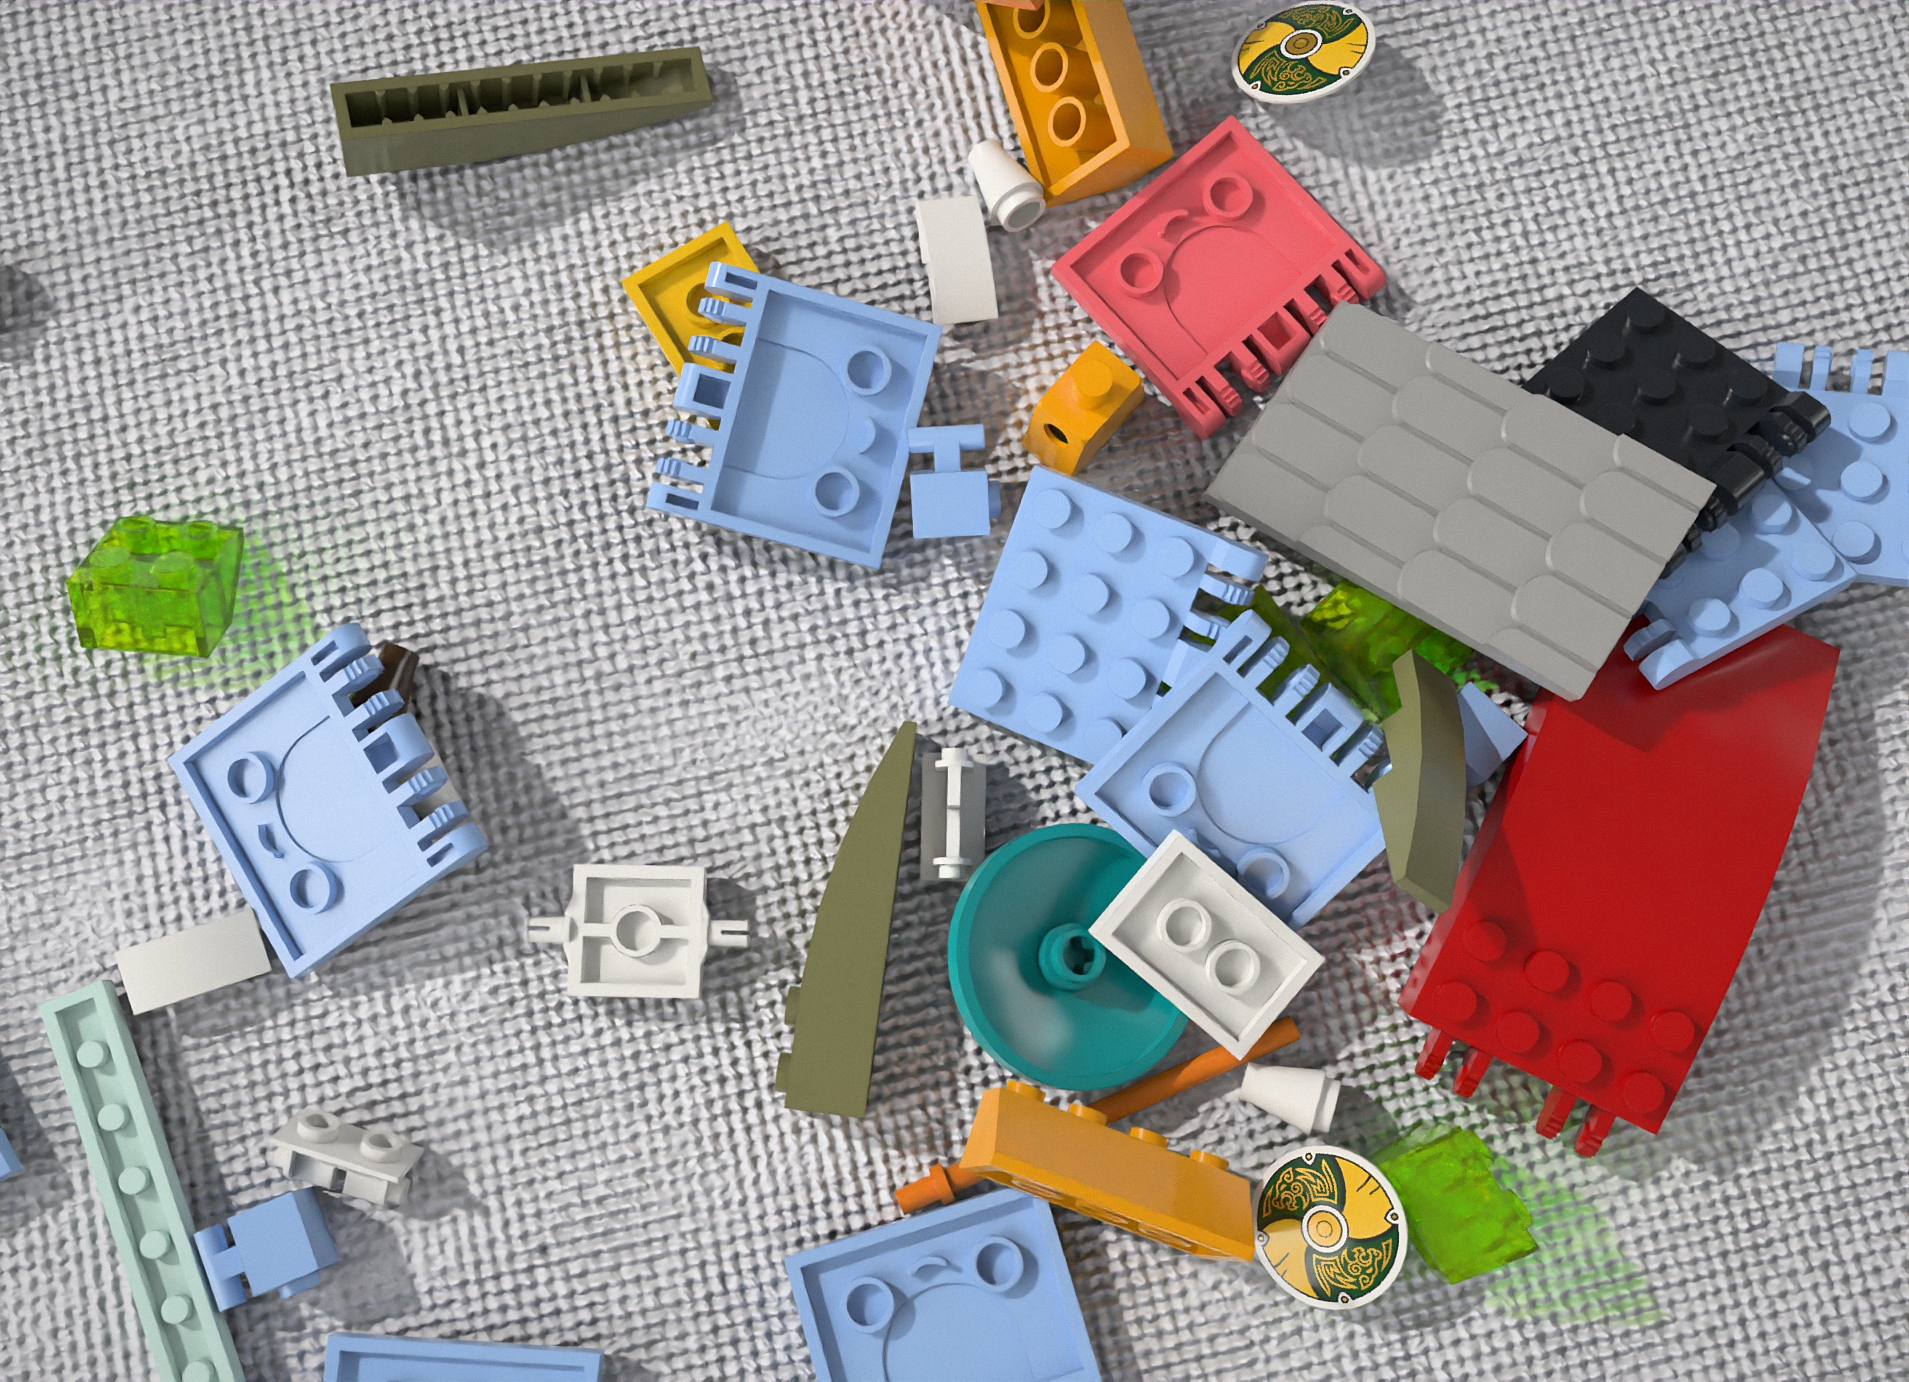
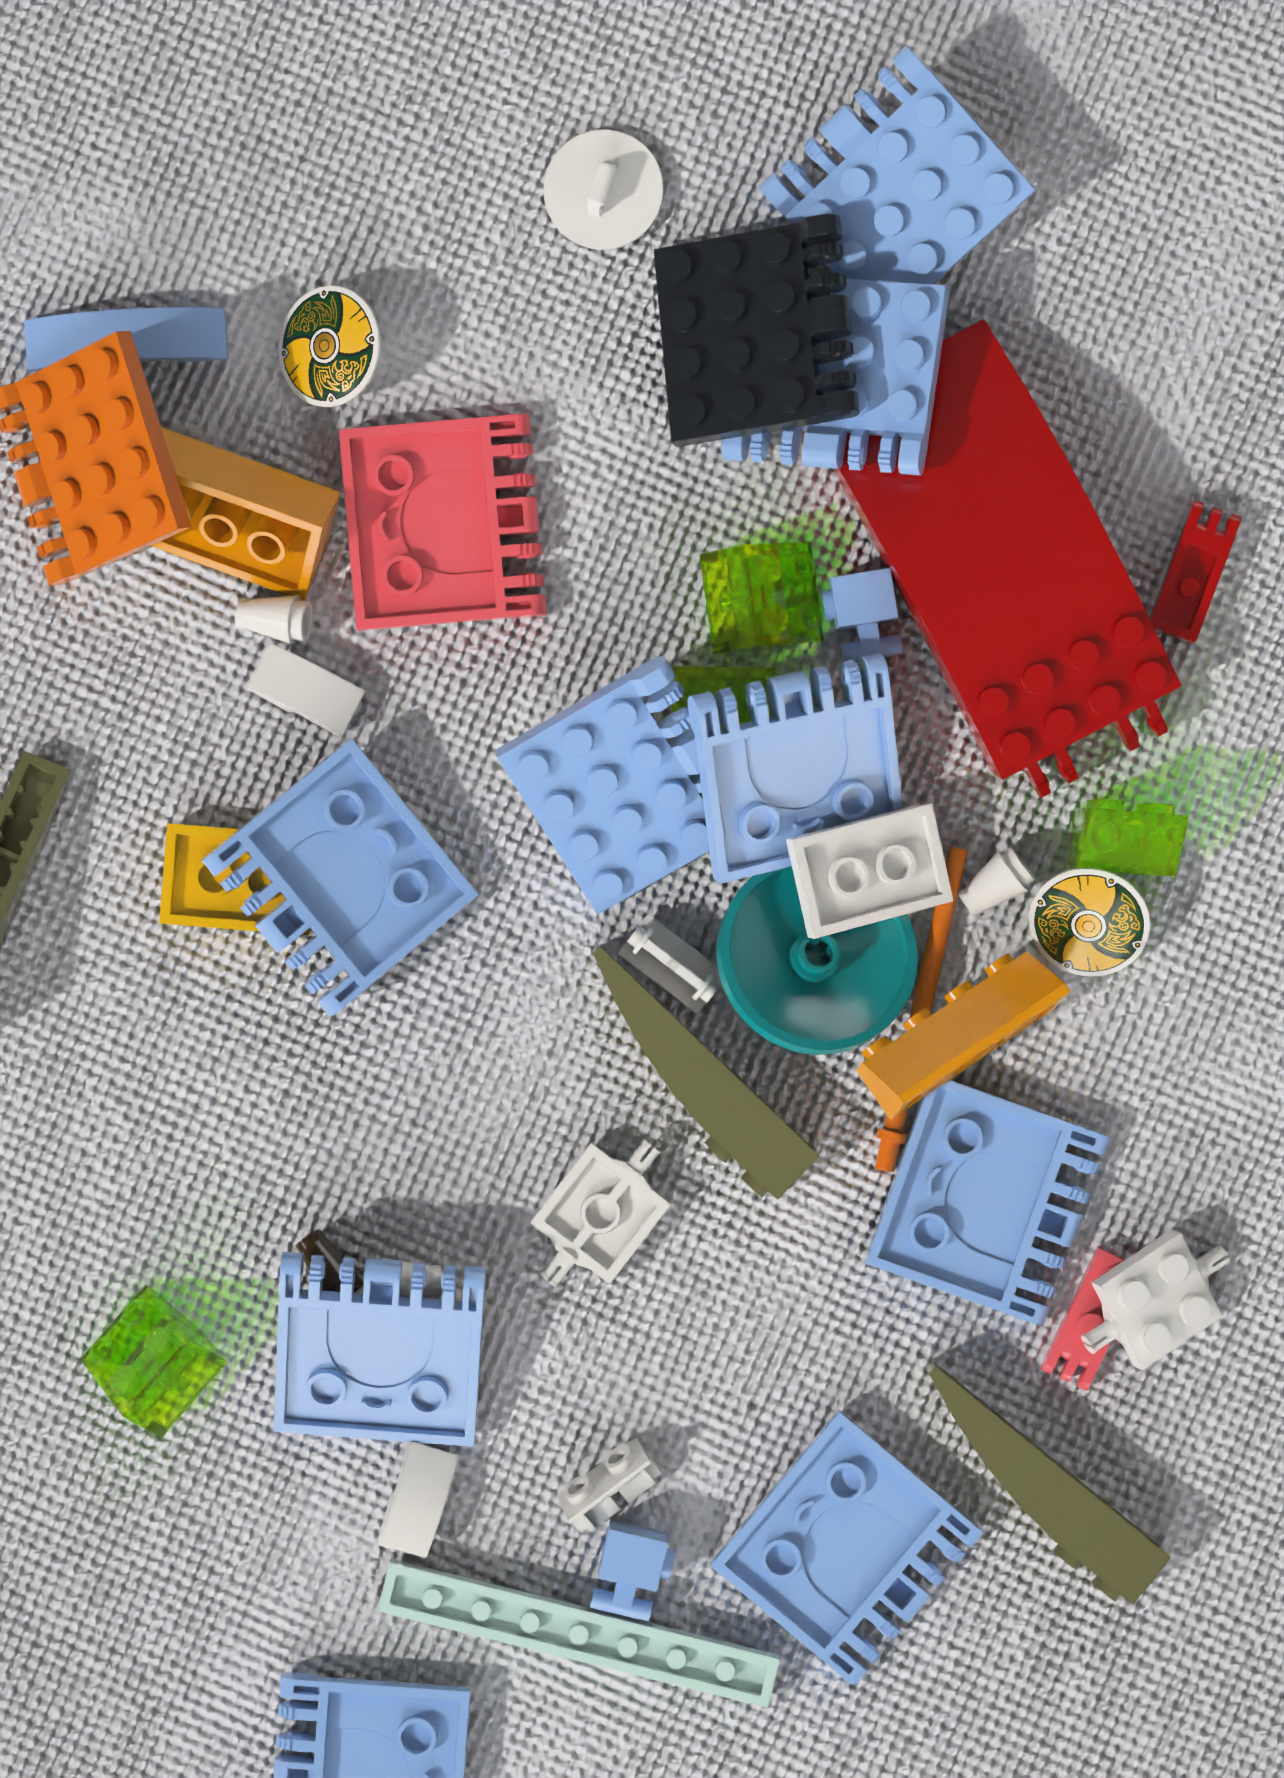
camera: 50 degrees left, 10 degrees up
(951, 497) = (465, 814): light blue brick -> none
(1086, 406) = (472, 685): light orange torso -> none
(1426, 789) = (877, 672): olive slope -> none
(1461, 497) = (707, 500): light grey piece -> none
(1650, 204) = (603, 189): none -> white shield
(1768, 1061) = (1193, 574): none -> red hinge

